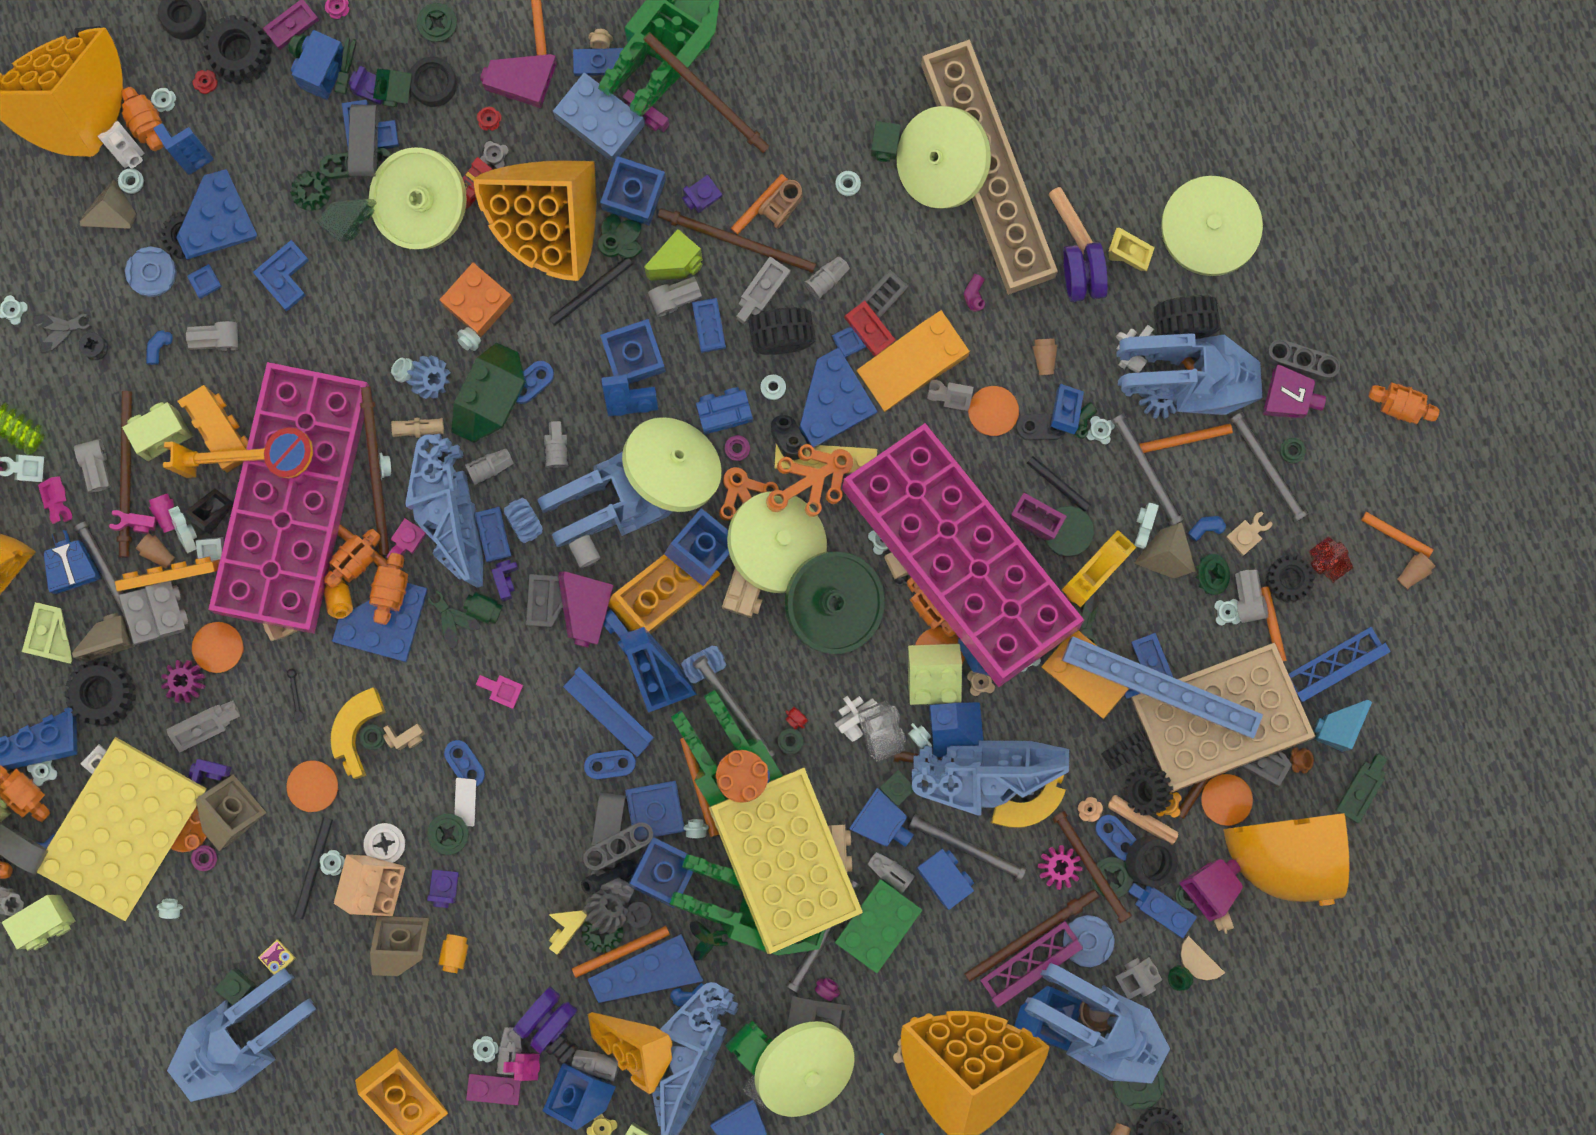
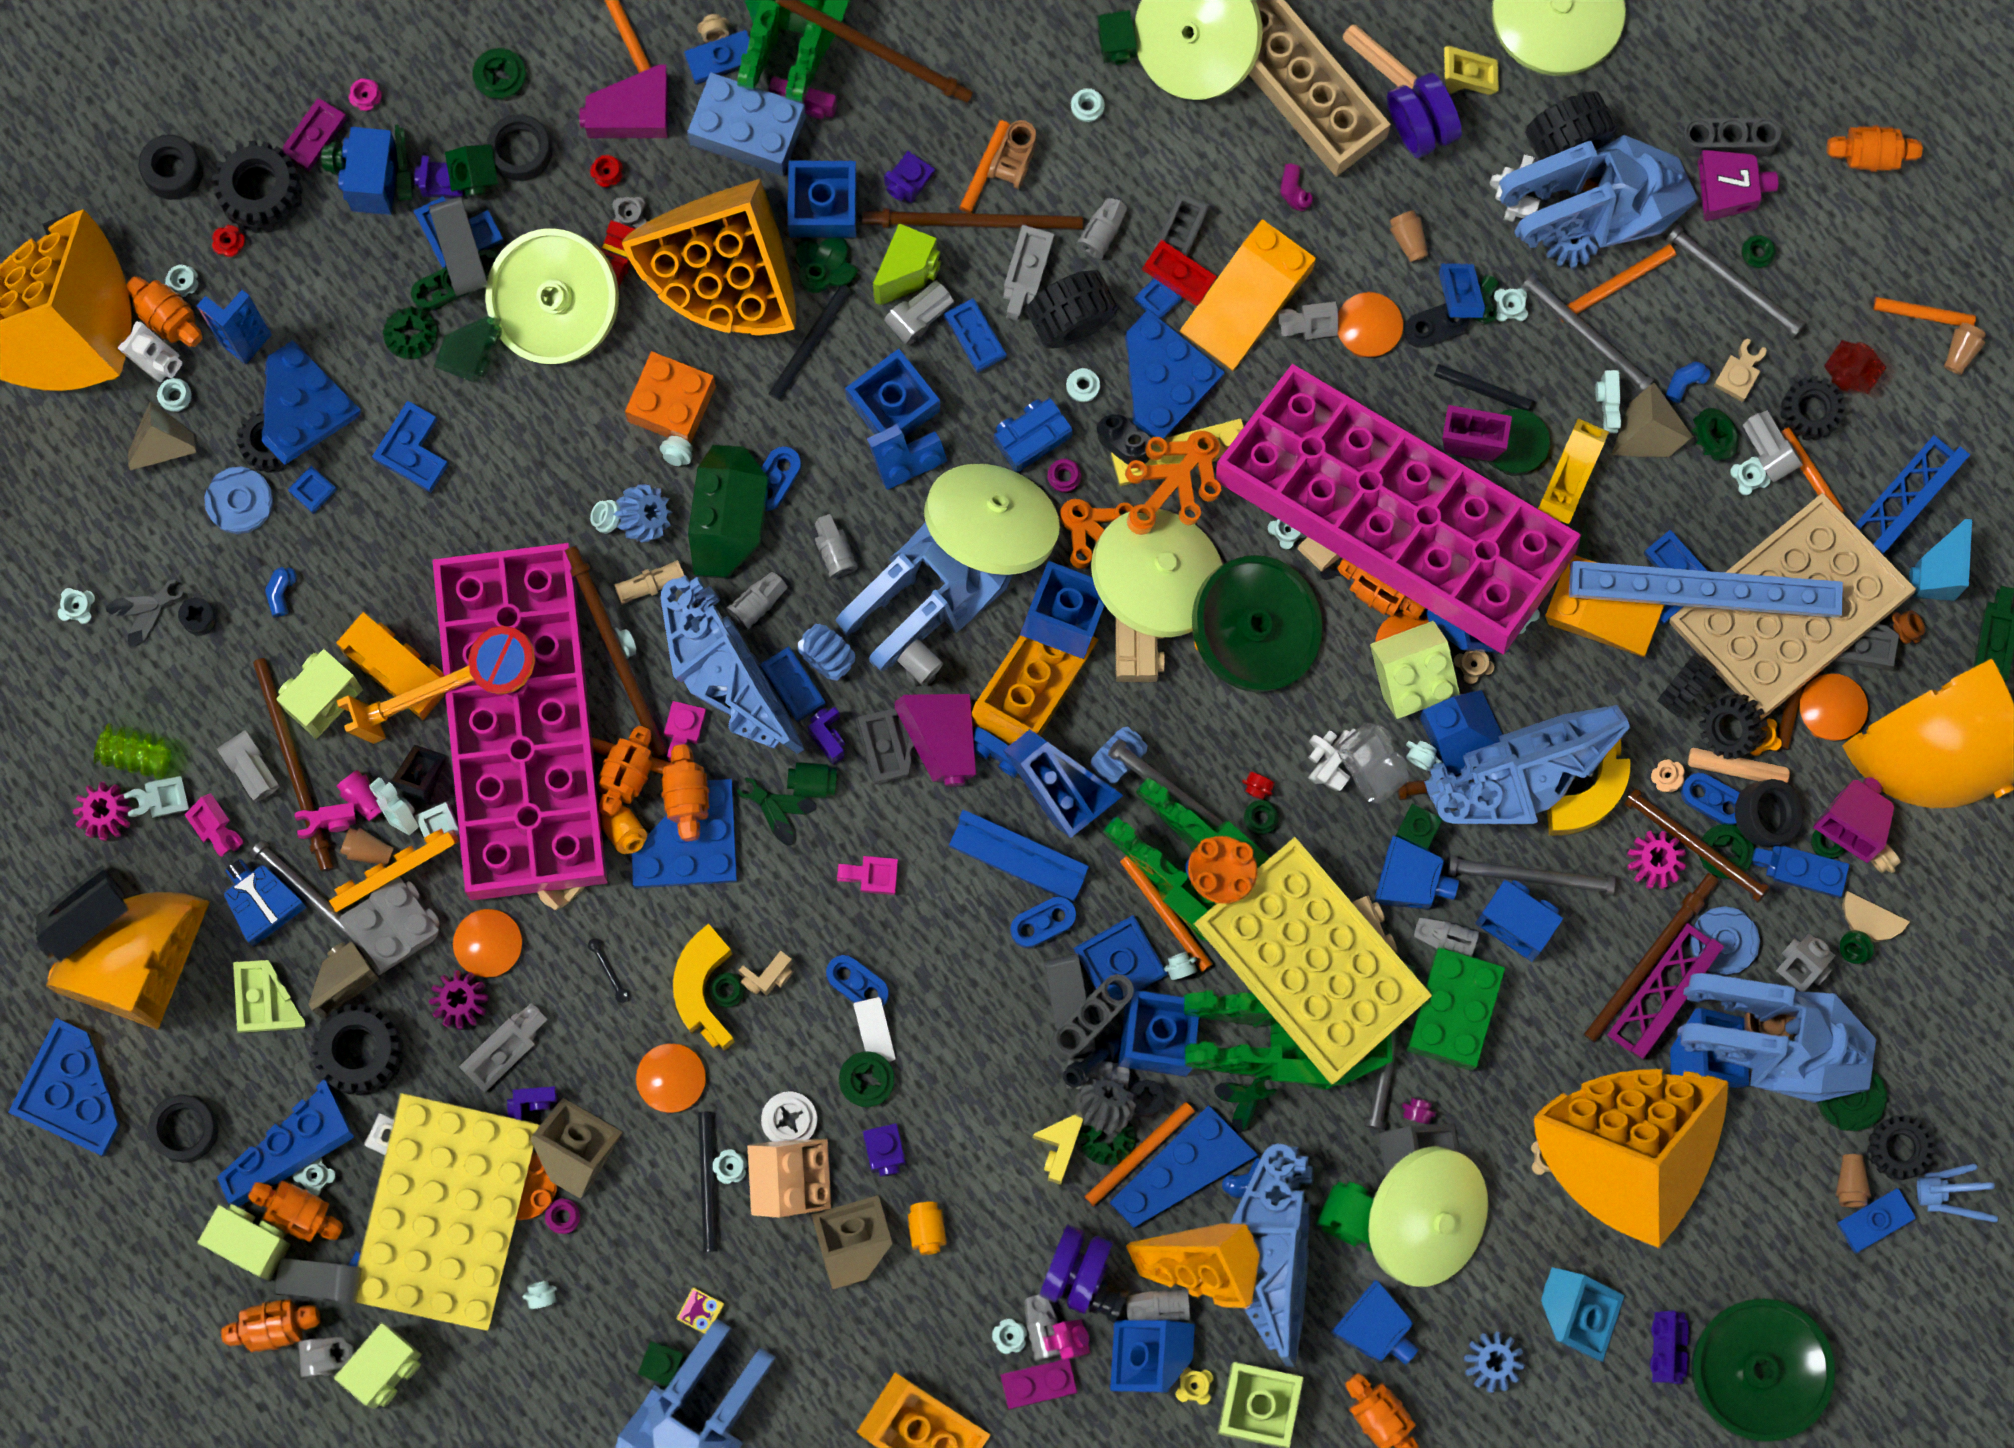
camera: 20 degrees left, 5 degrees down
(220, 336) = (355, 551): light grey piece -> none

